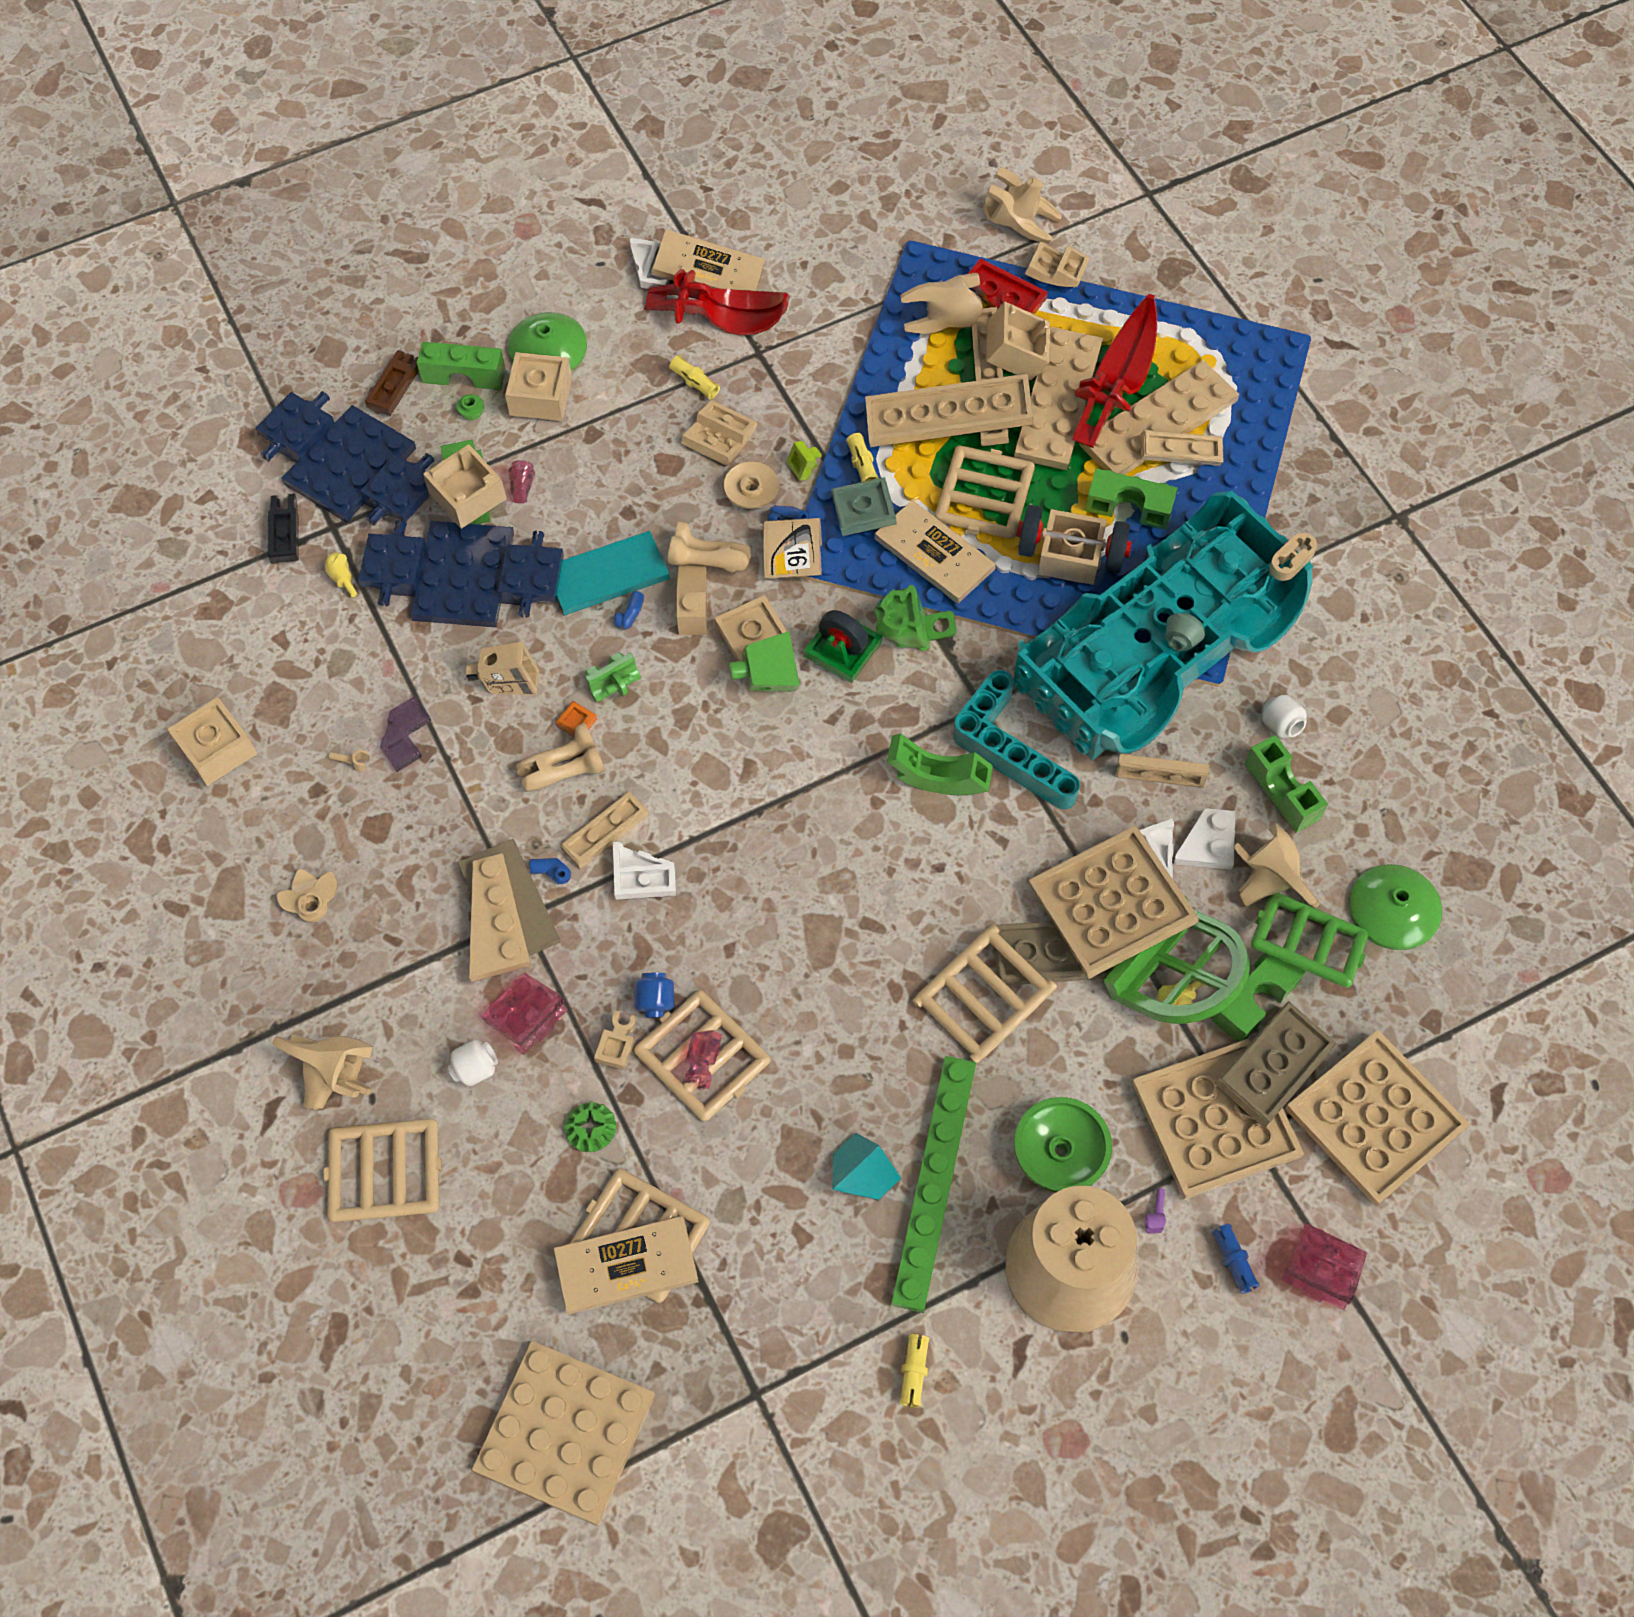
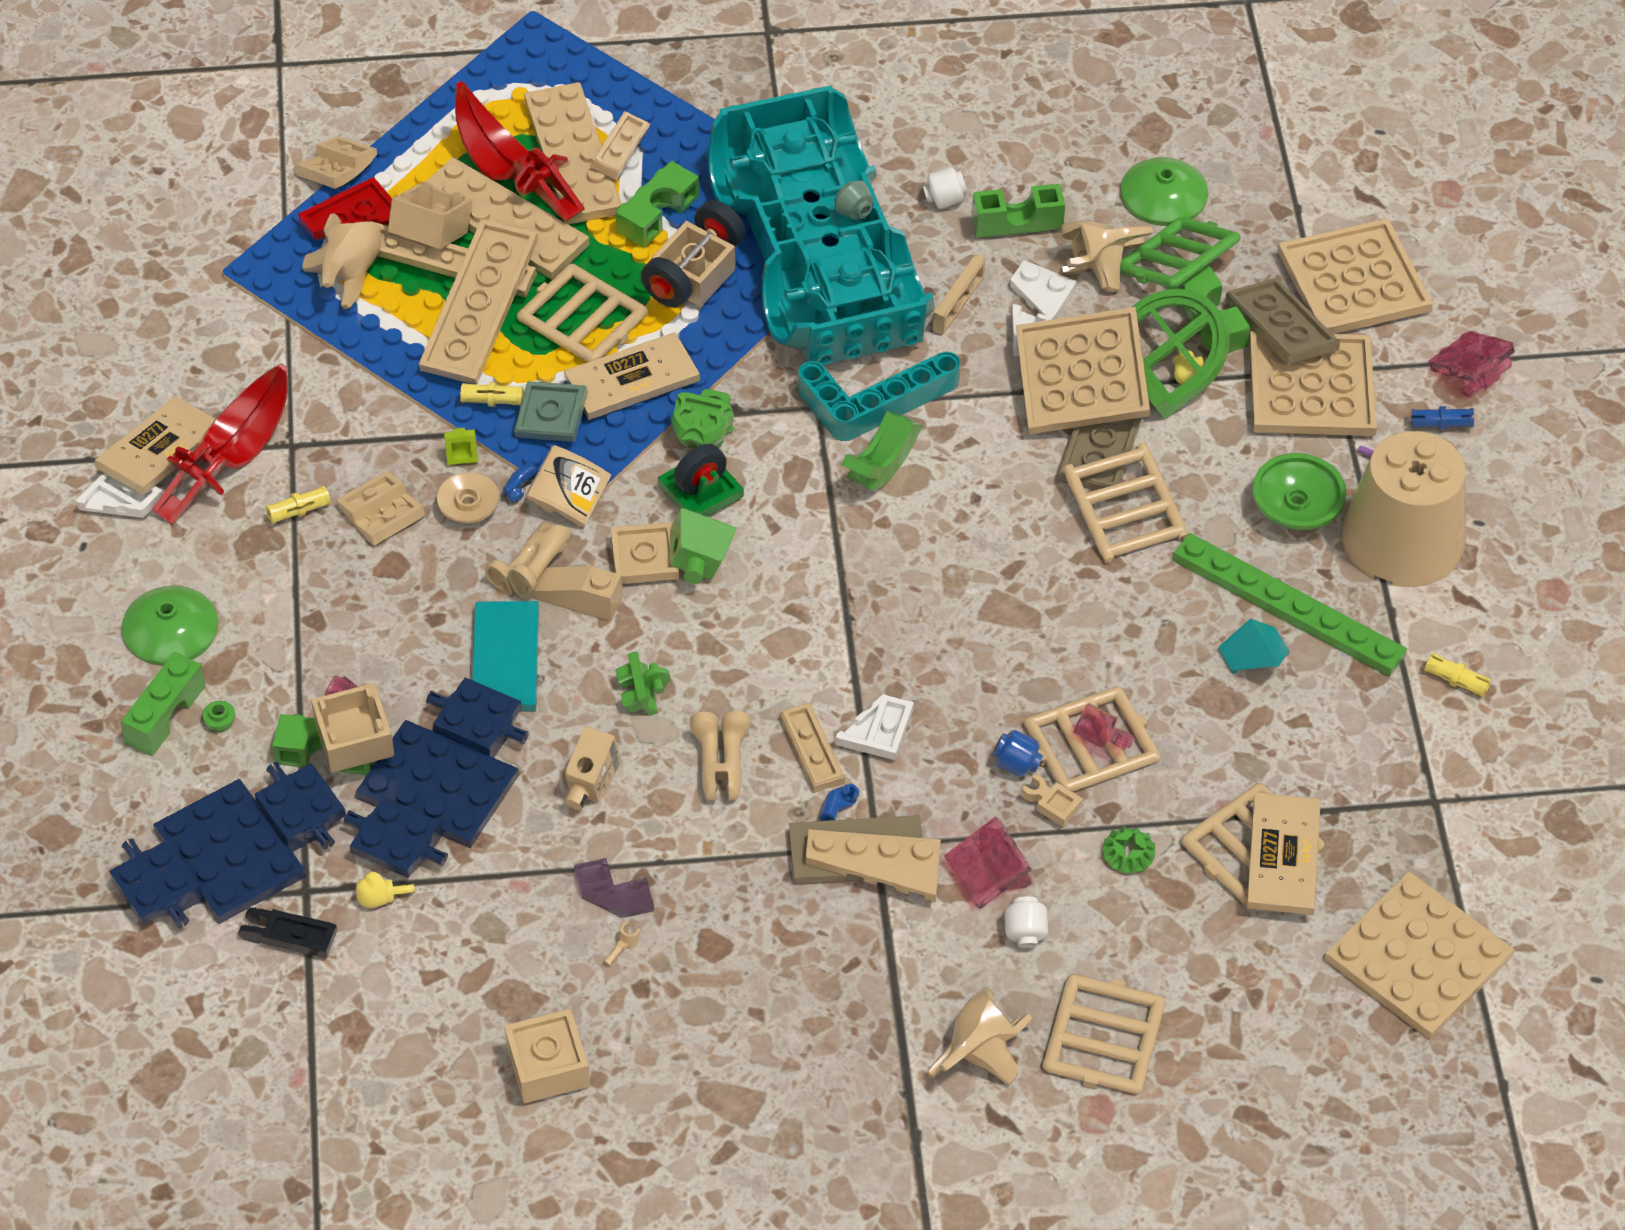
camera: 70 degrees left, 10 degrees down
(308, 892) = (765, 1021): tan plate -> none
(393, 383) = (145, 776): reddish brown hinge -> none
(538, 386) = (238, 638): tan container -> none
(574, 716) = (672, 734): orange tile -> none
(632, 611) = (567, 643): blue arm -> none
(1018, 205) = (244, 162): tan piece -> none
(1288, 552) = (812, 94): tan beam -> none

